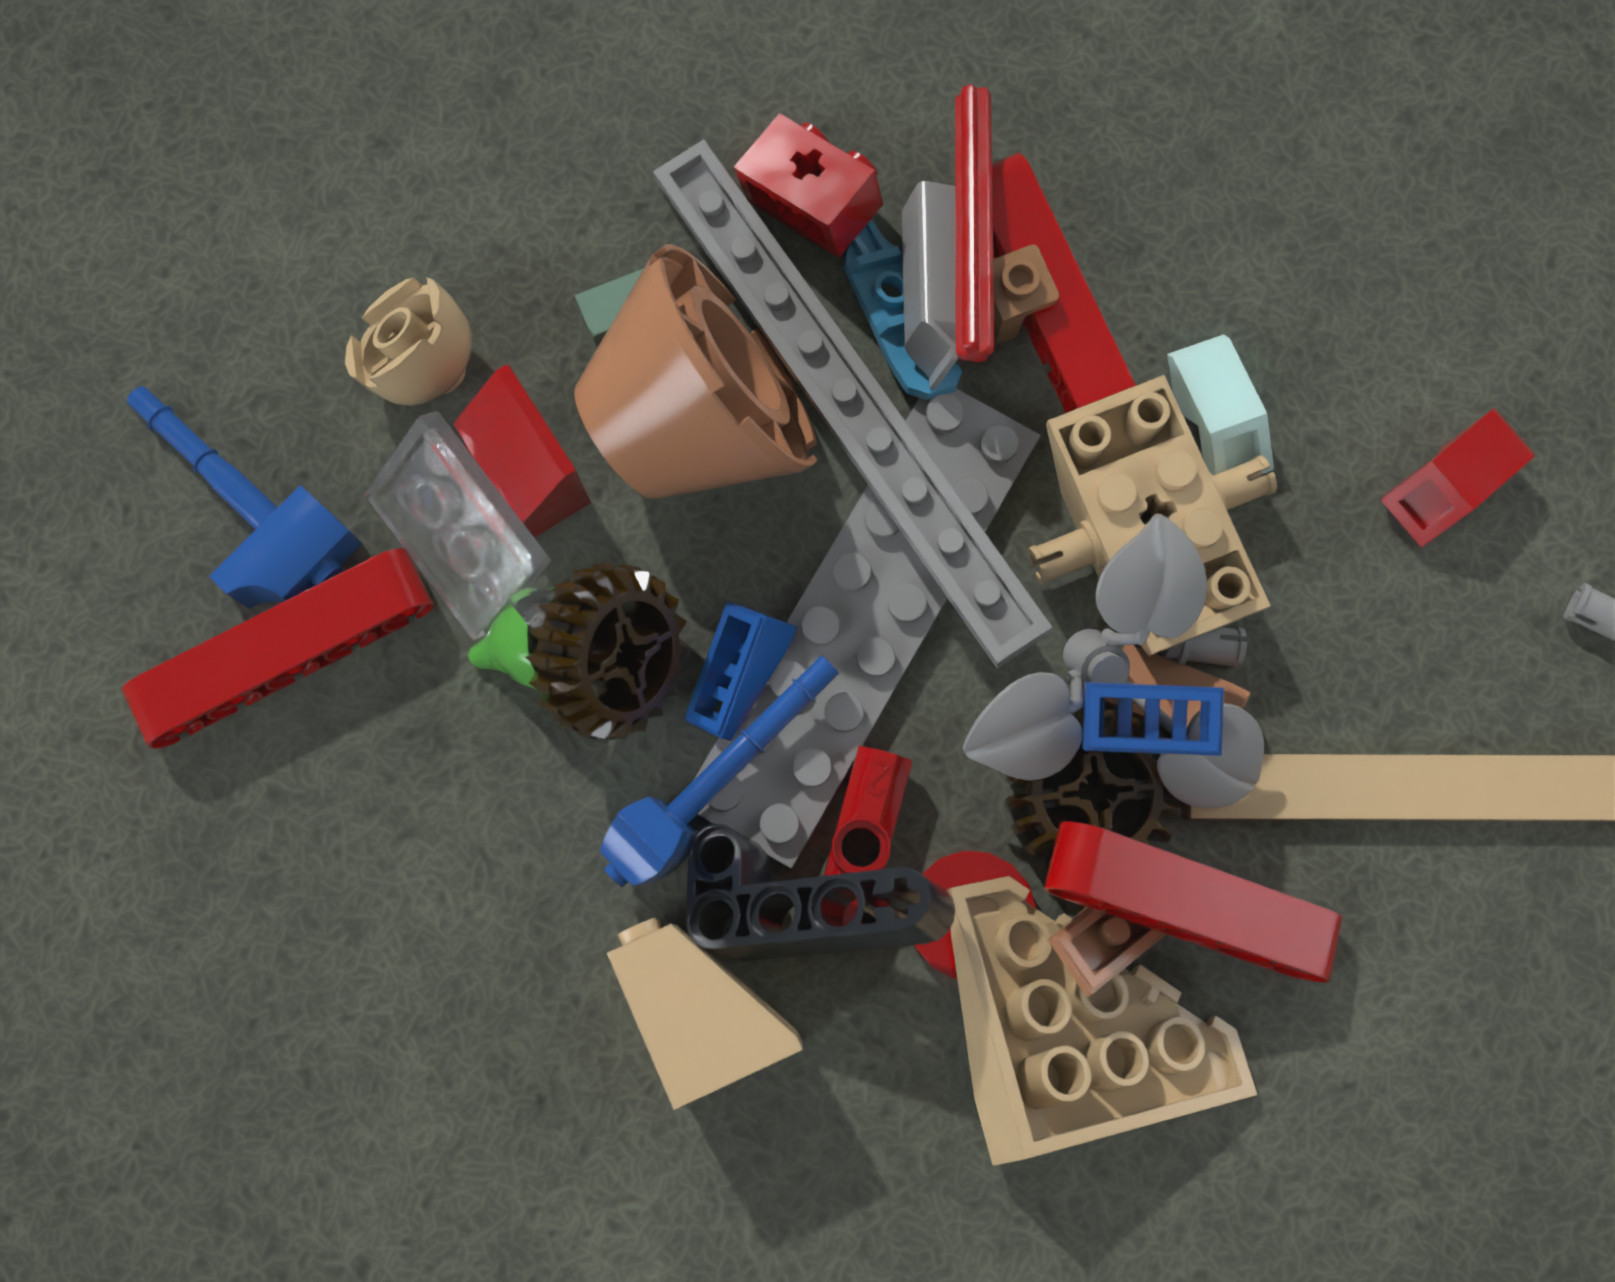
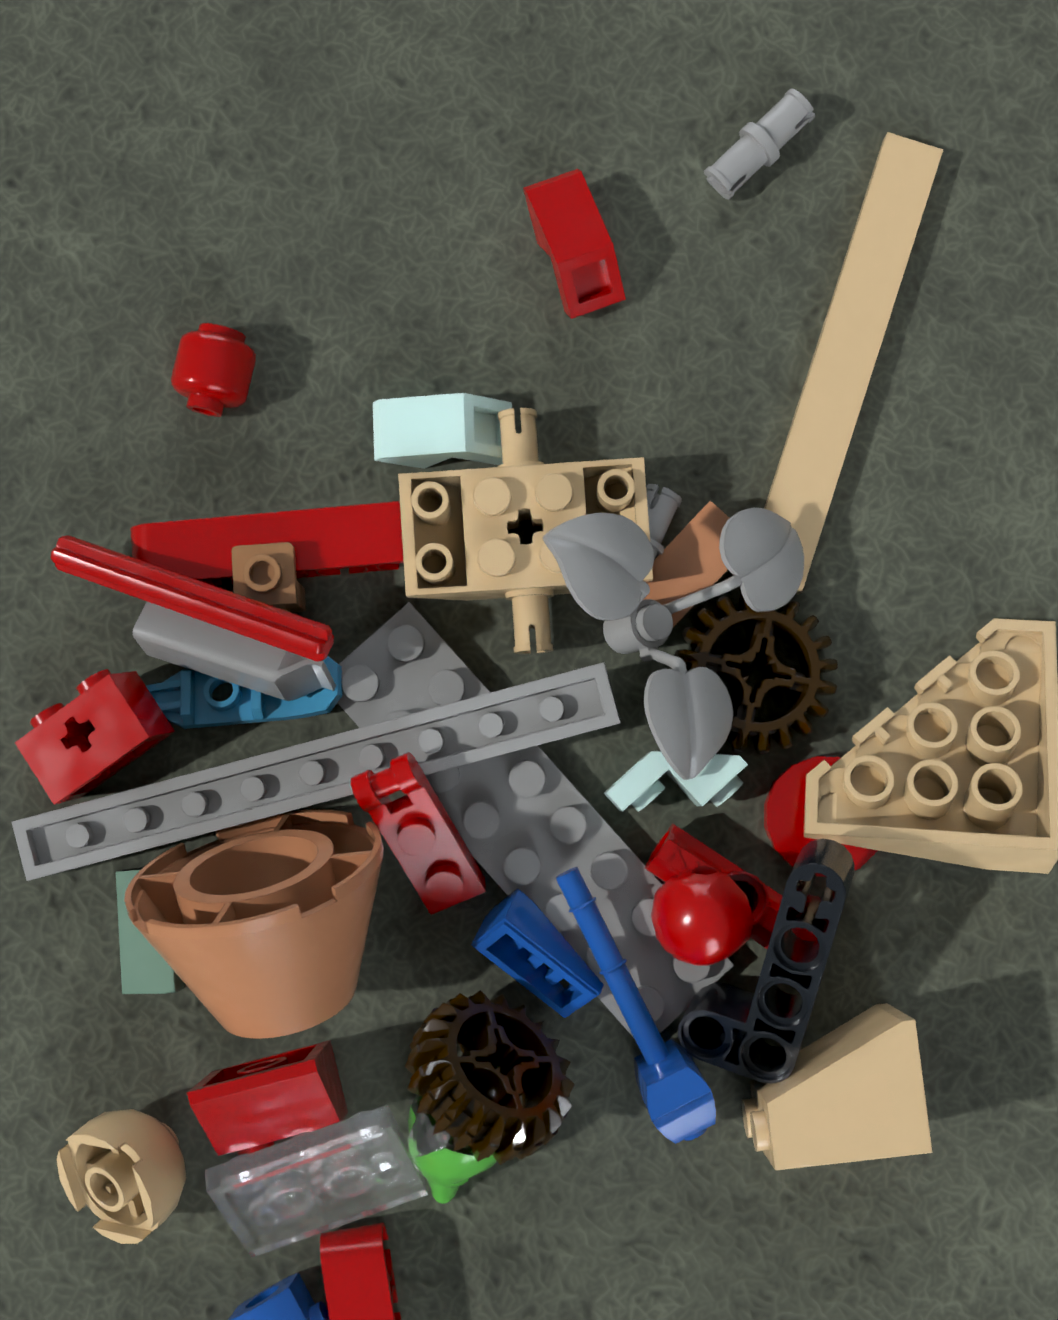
camera: 70 degrees left, 5 degrees up
(820, 511) = (420, 833): none -> red plate
(830, 810) = (701, 917): none -> red hair
(968, 782) = (641, 782): none -> light aqua slope
(1100, 946) = (884, 701): nougat slope -> none
(1192, 902) = (884, 625): beam -> none
(1198, 179) = (213, 369): none -> red head
(1210, 718) = (737, 612): blue slope -> none

